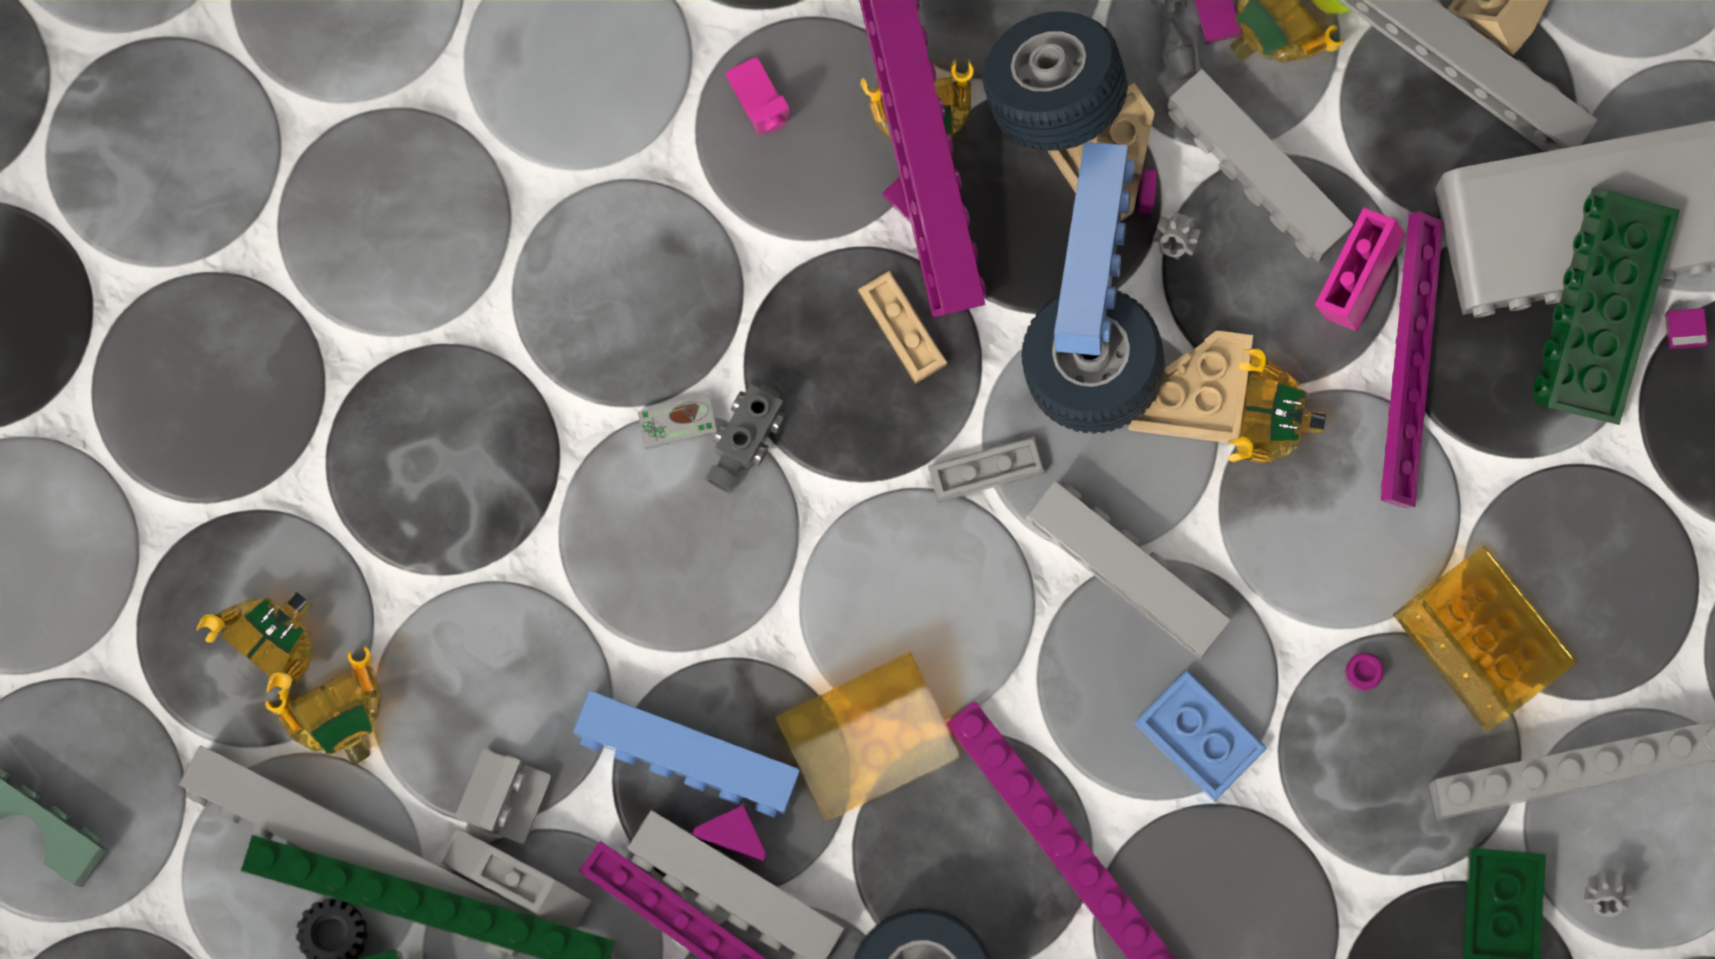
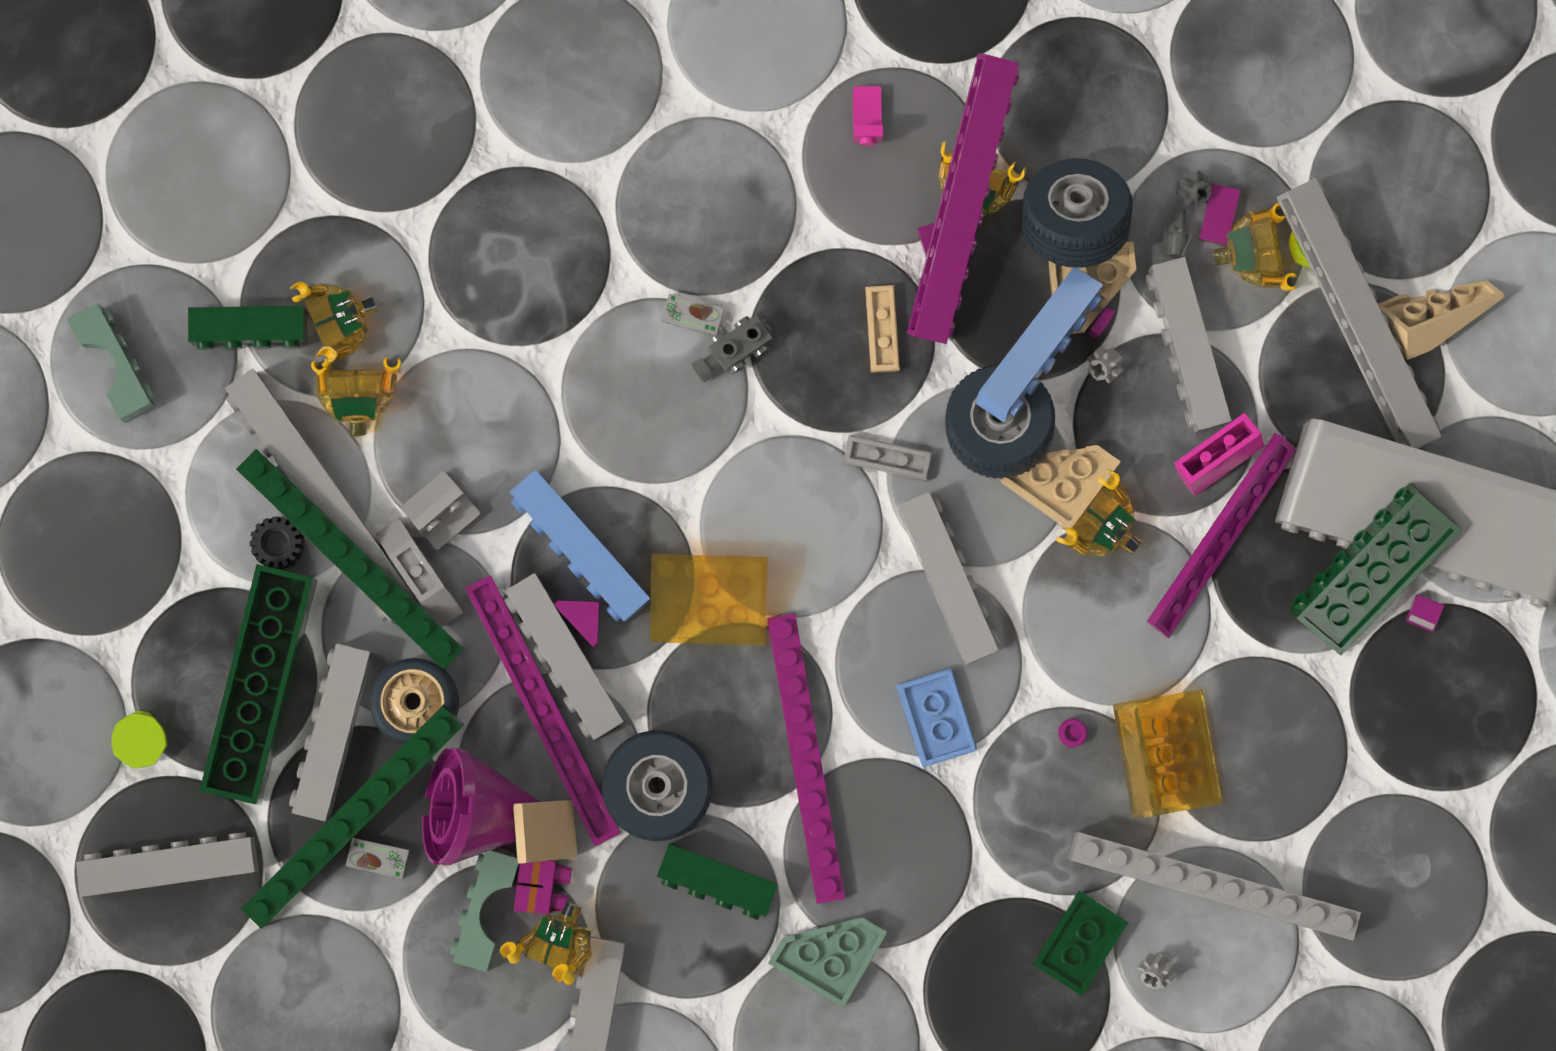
camera: 20 degrees right, 5 degrees up
(168, 700) = (247, 326): none -> dark green brick

